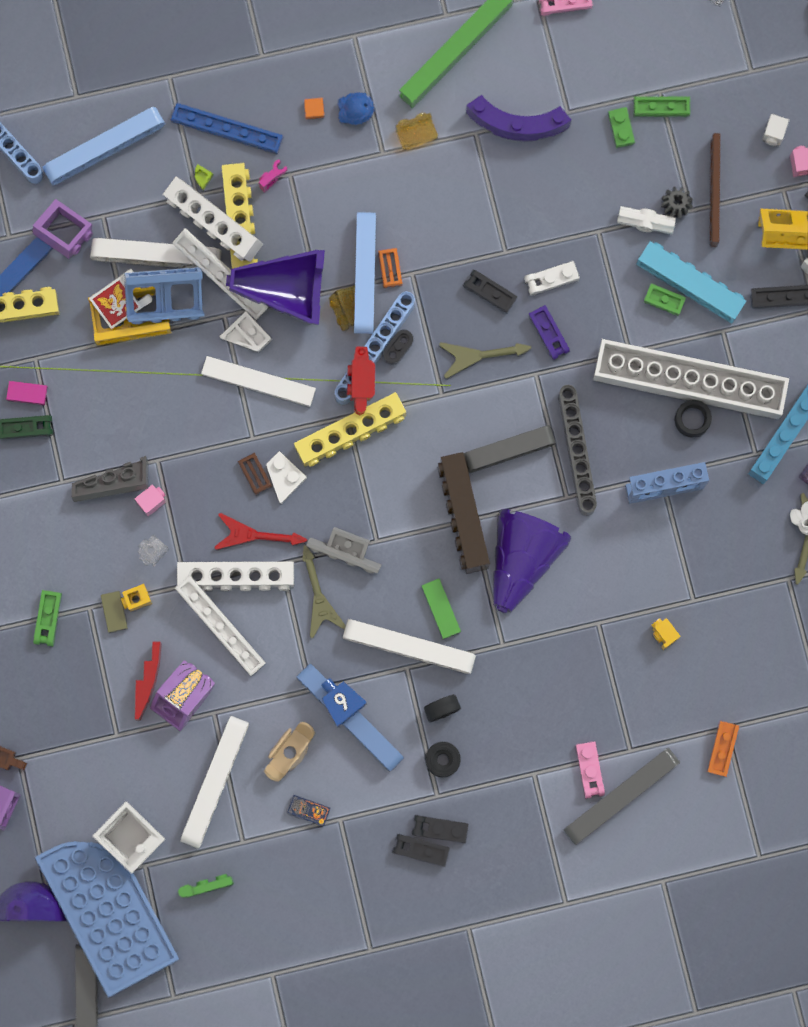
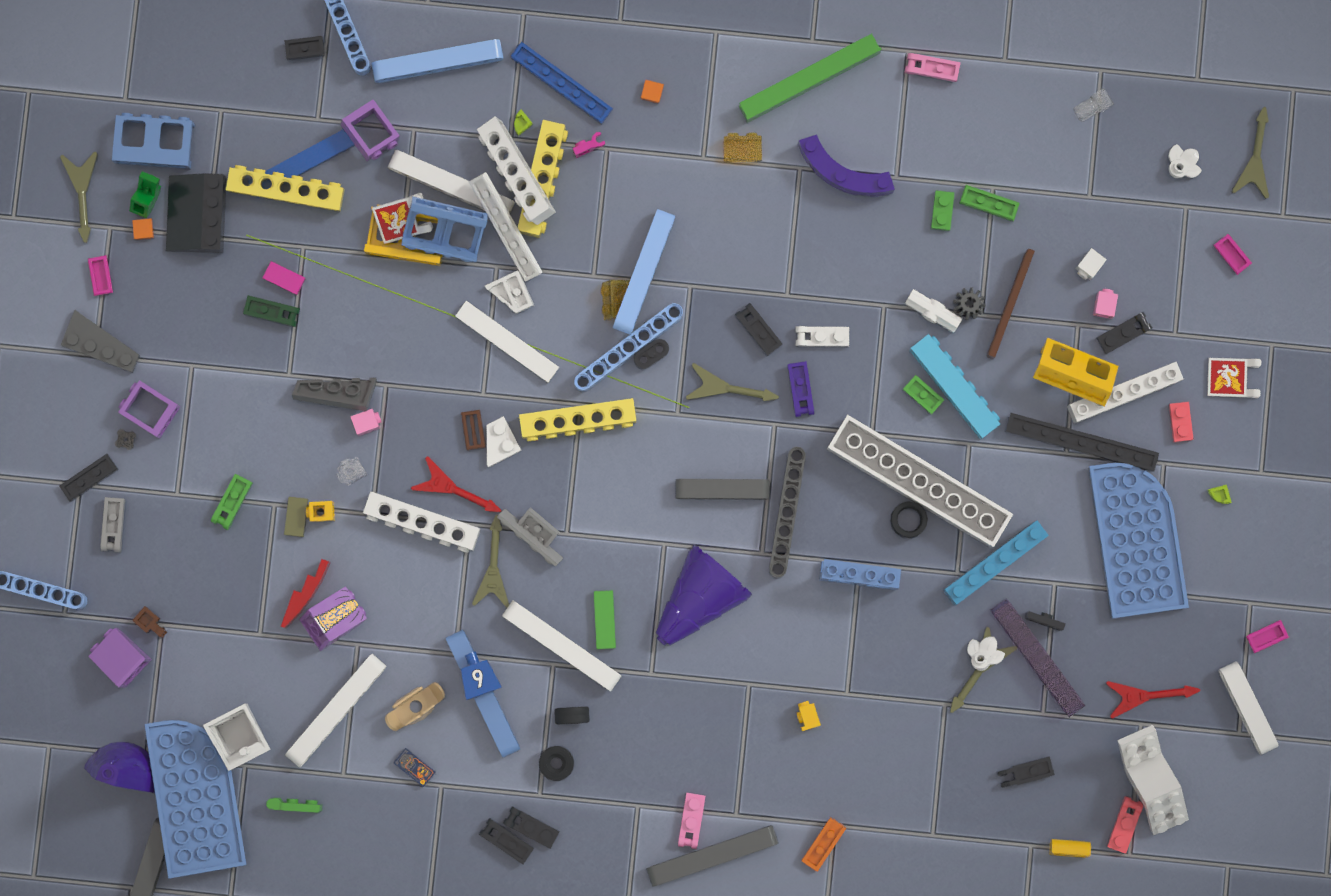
camera: 20 degrees right, 5 degrees up
(220, 625) = (390, 565): white tile -> none
(283, 284) = (561, 259): dark purple cone -> none
(353, 109) = (688, 105): blue hair -> none
(362, 379) = (604, 376): red hinge -> none
(392, 283) = (673, 257): orange tile -> none
(465, 517) = (657, 537): dark brown brick -> none

